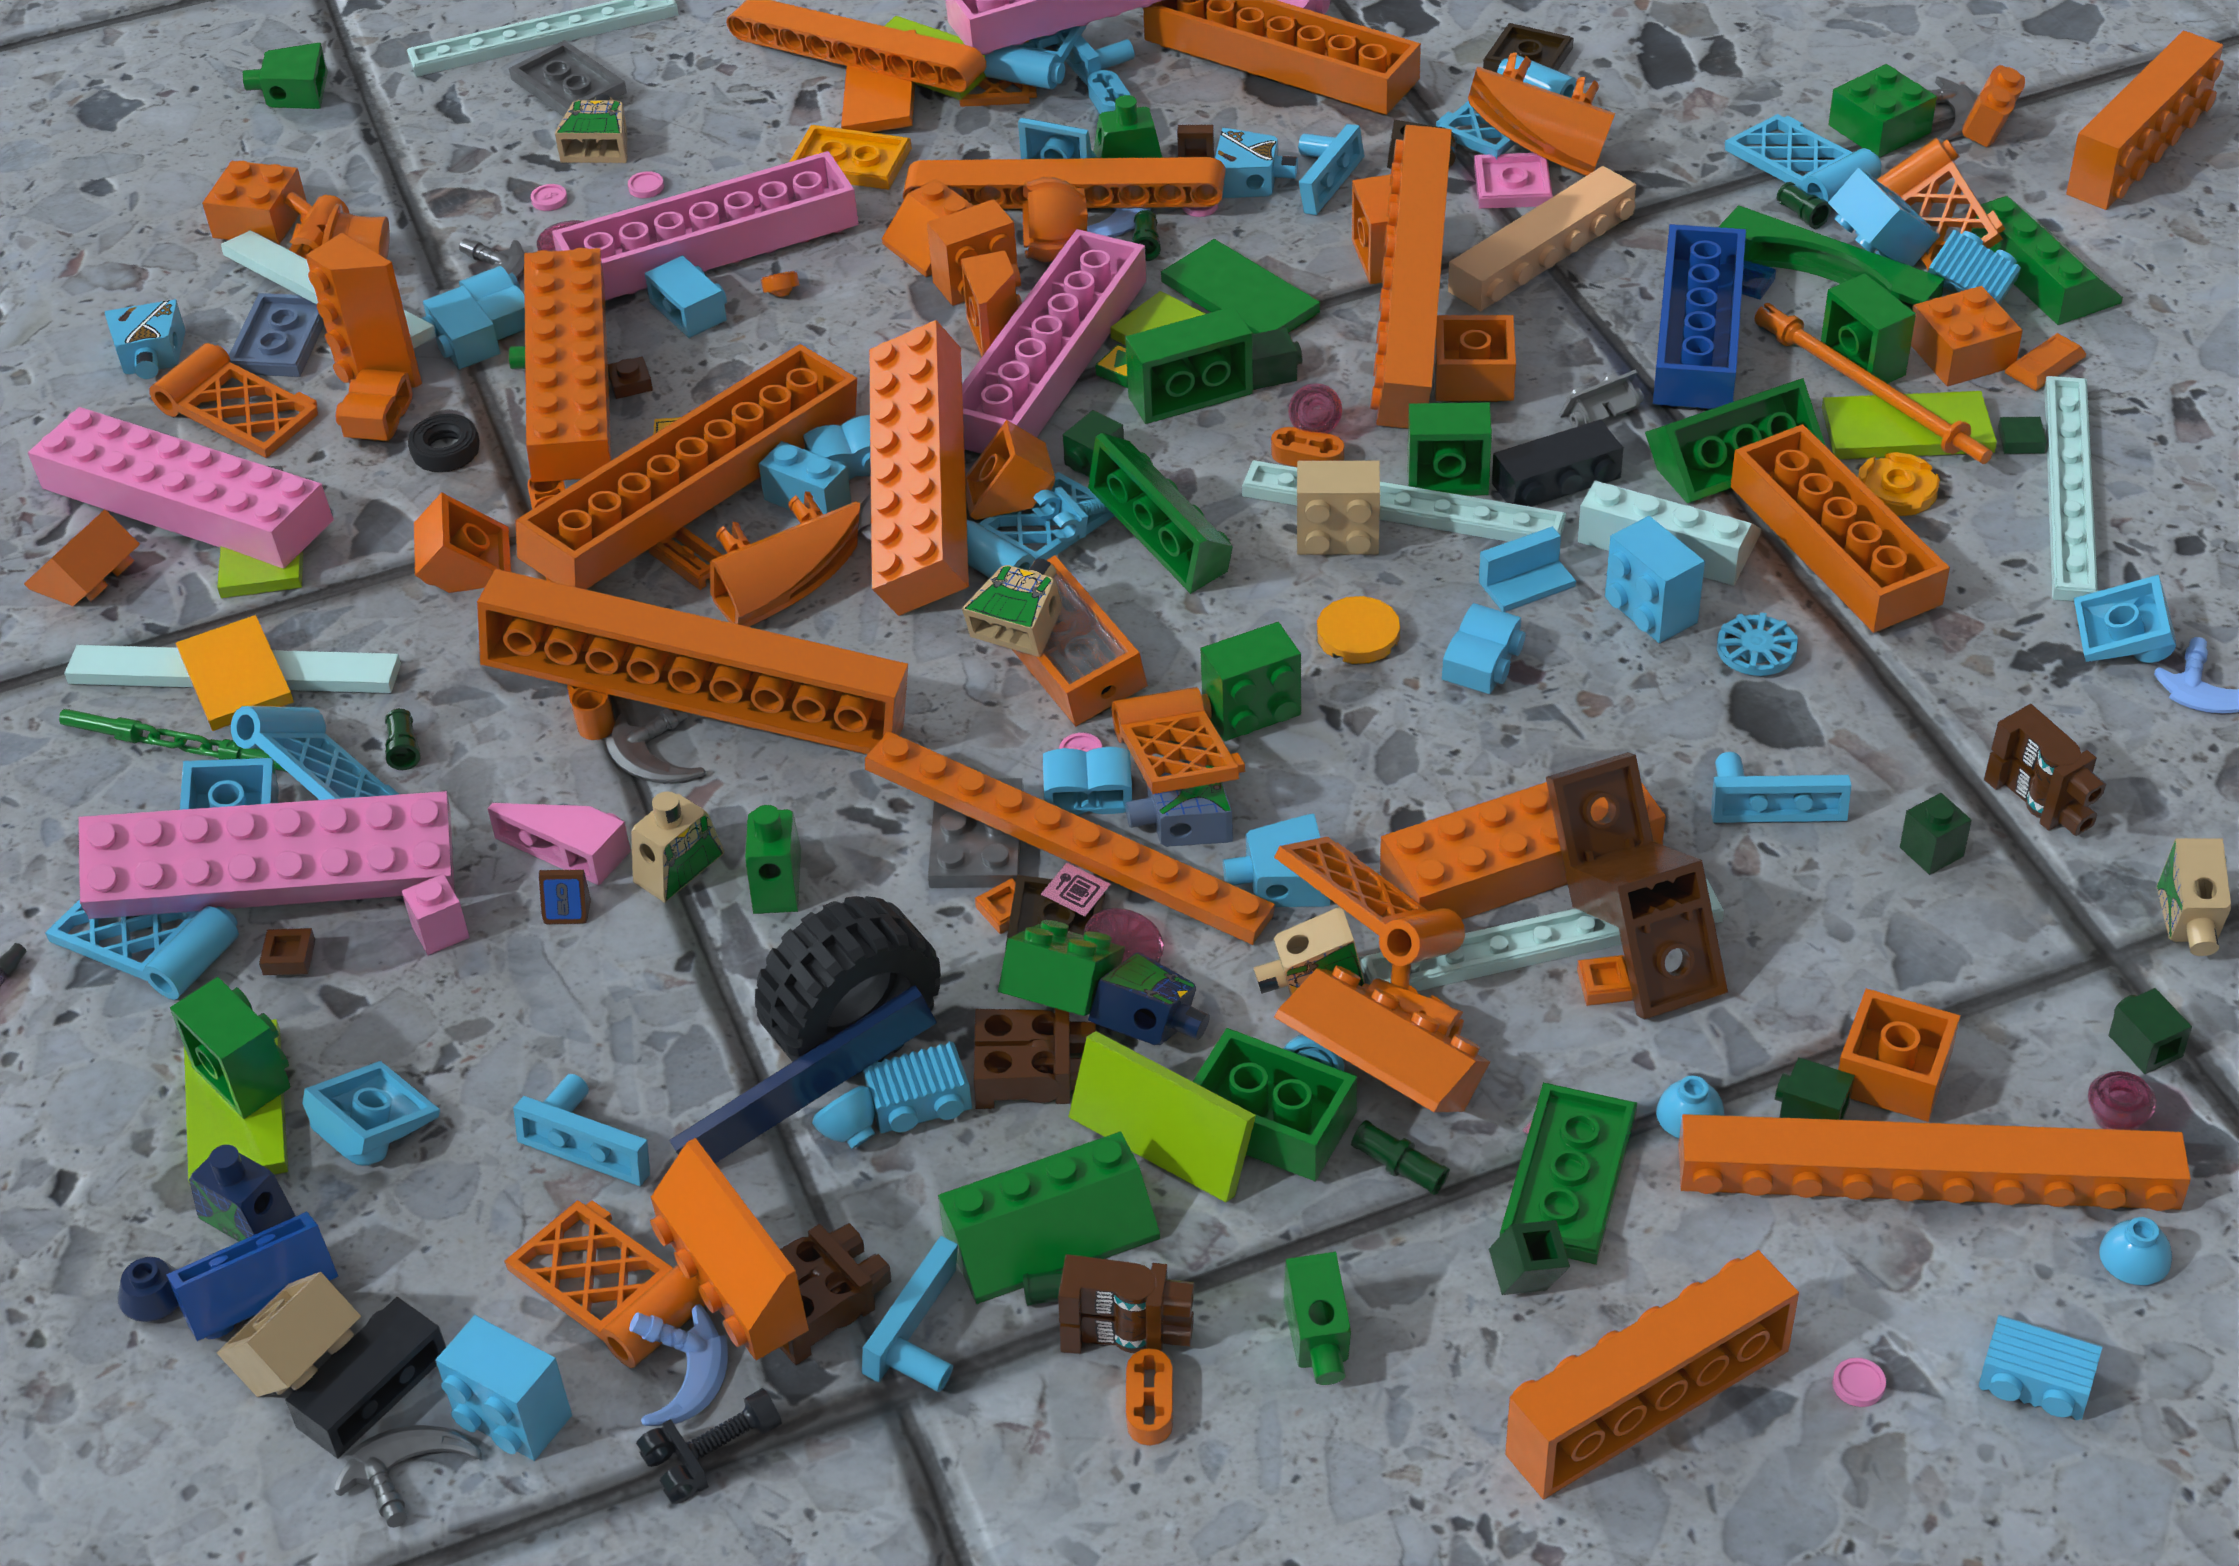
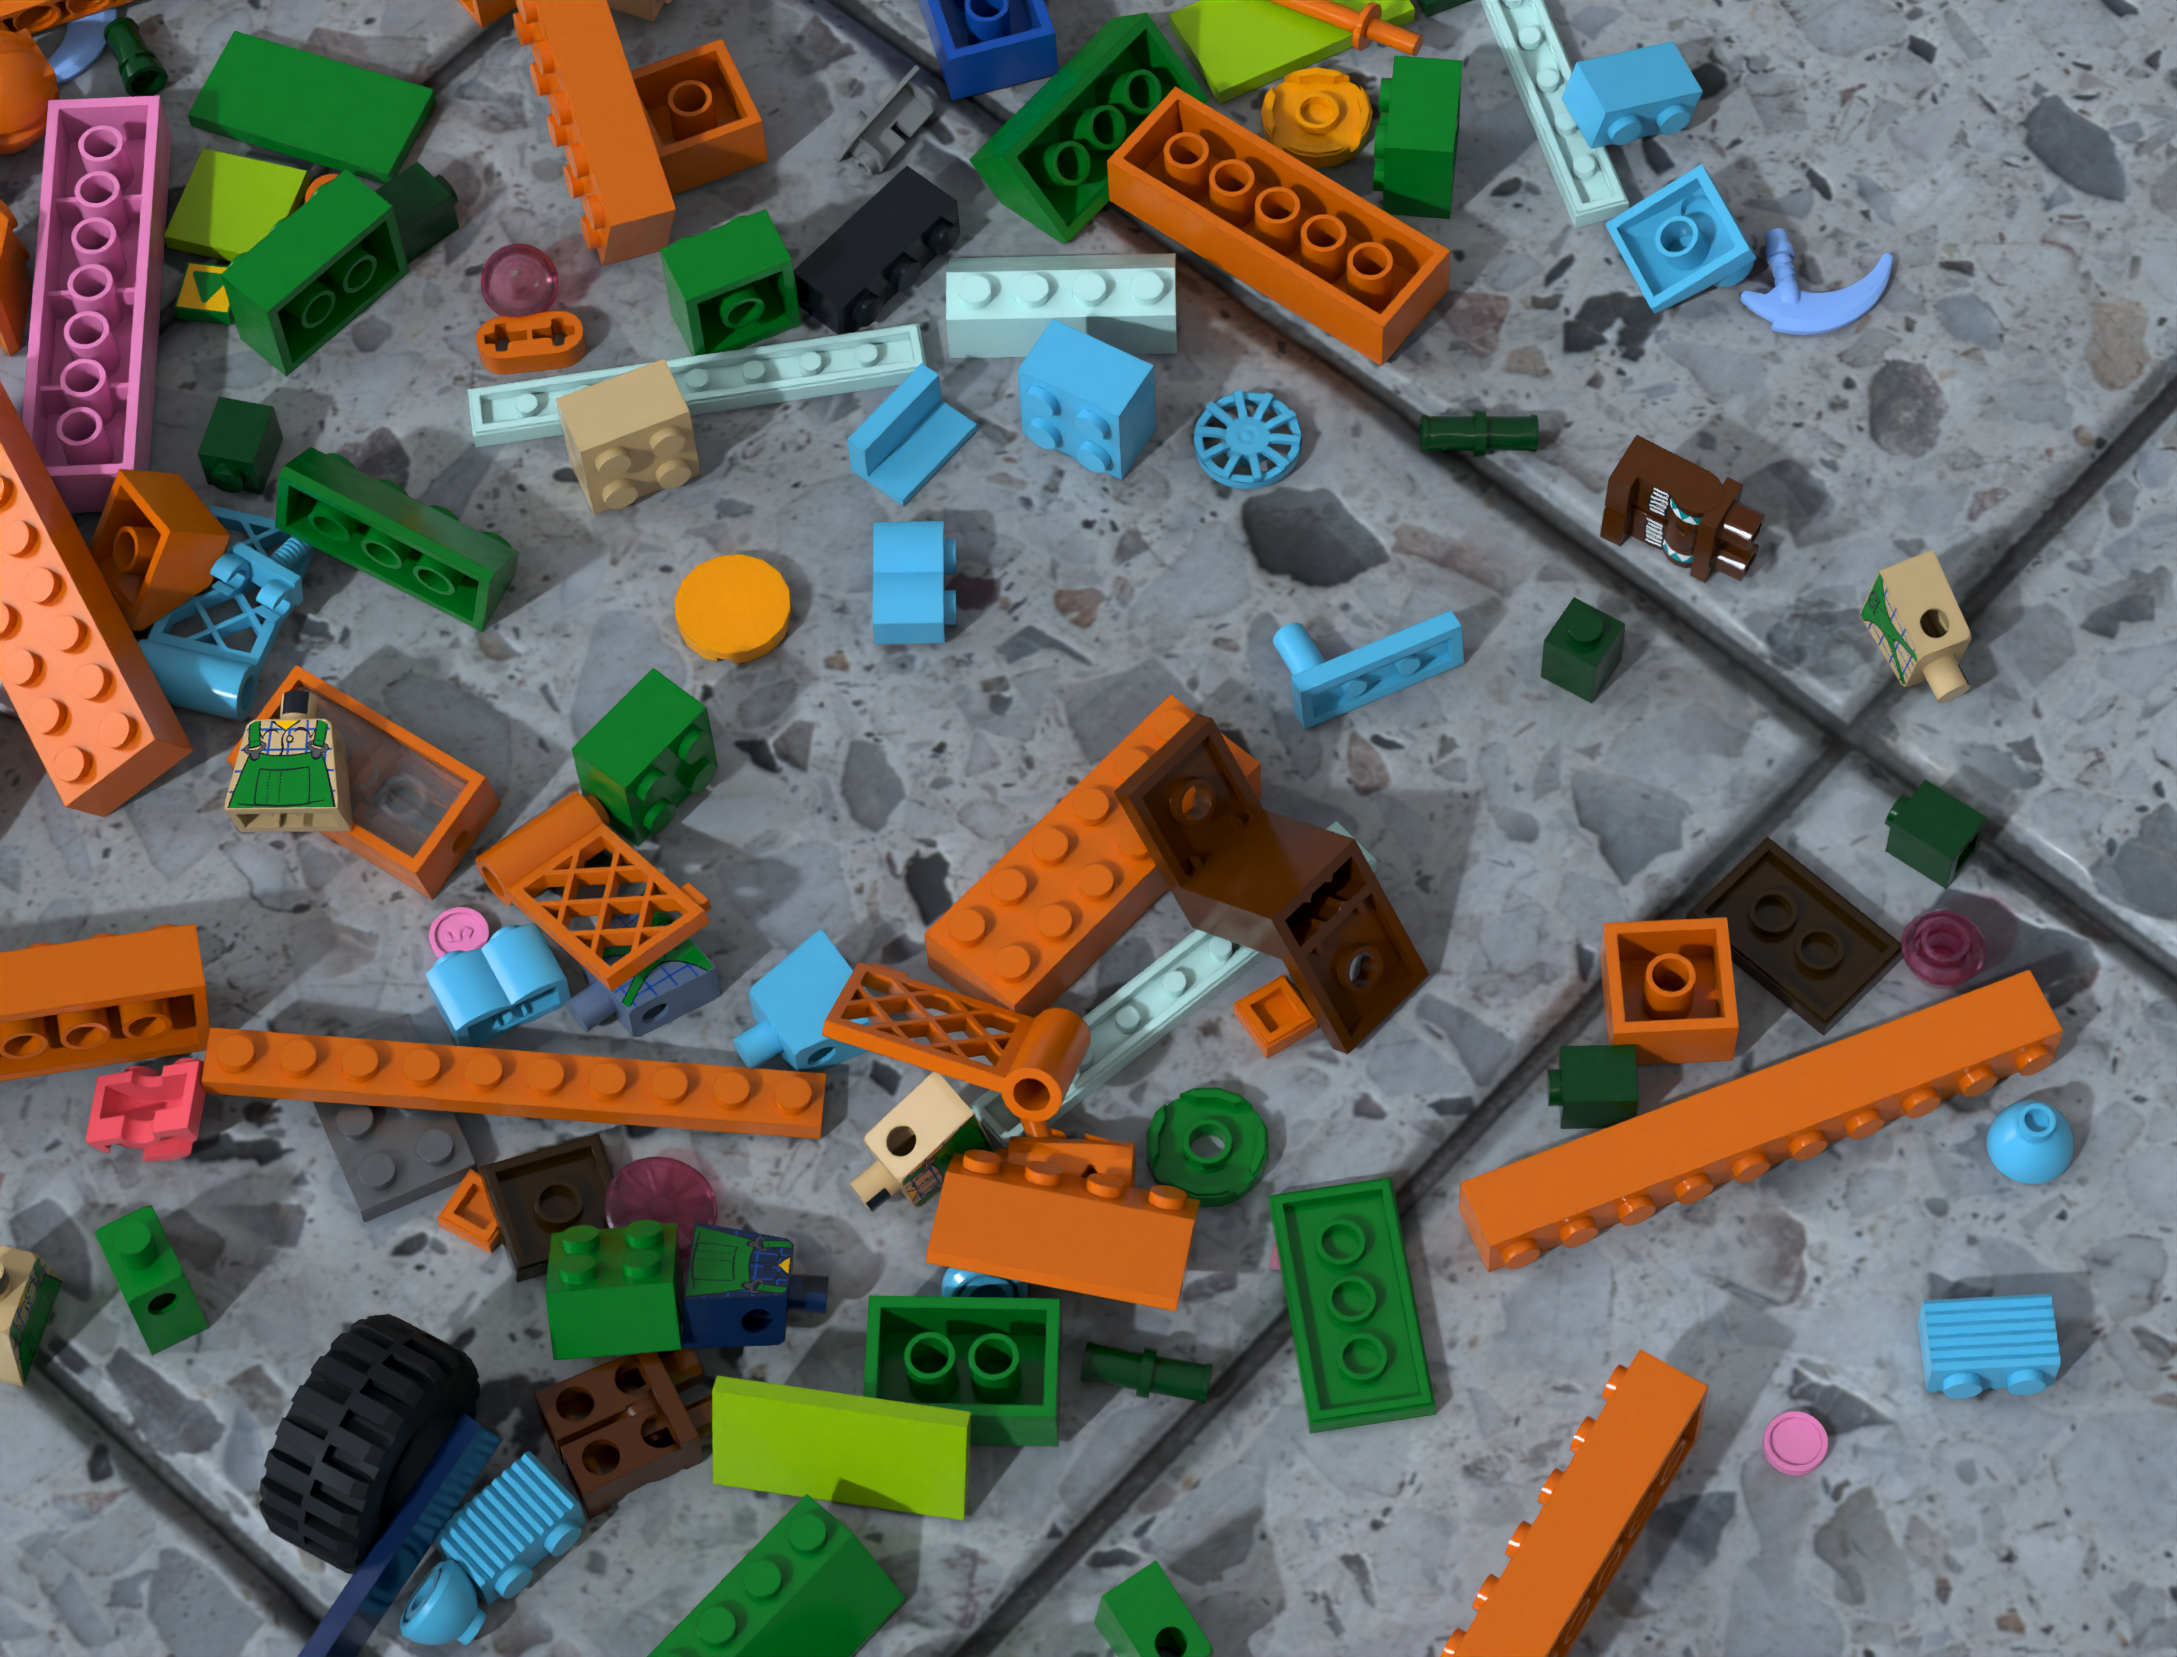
camera: 25 degrees left, 15 degrees up
(827, 773) = (149, 1110): none -> coral cylinder
(1075, 889) = (564, 1156): clear pink sticker -> none
(1522, 1061) = (1215, 1113): none -> green tile
(1529, 1257) = (1366, 1452): dark green brick -> none
(1687, 1096) = (1452, 1154): medium azure brick -> none
(1923, 688) = (1478, 433): none -> dark green pin
(1962, 503) = (1418, 136): none -> green brick
(2017, 1063) = (1799, 936): none -> dark brown tile
(2128, 528) = (1632, 95): none -> medium azure brick

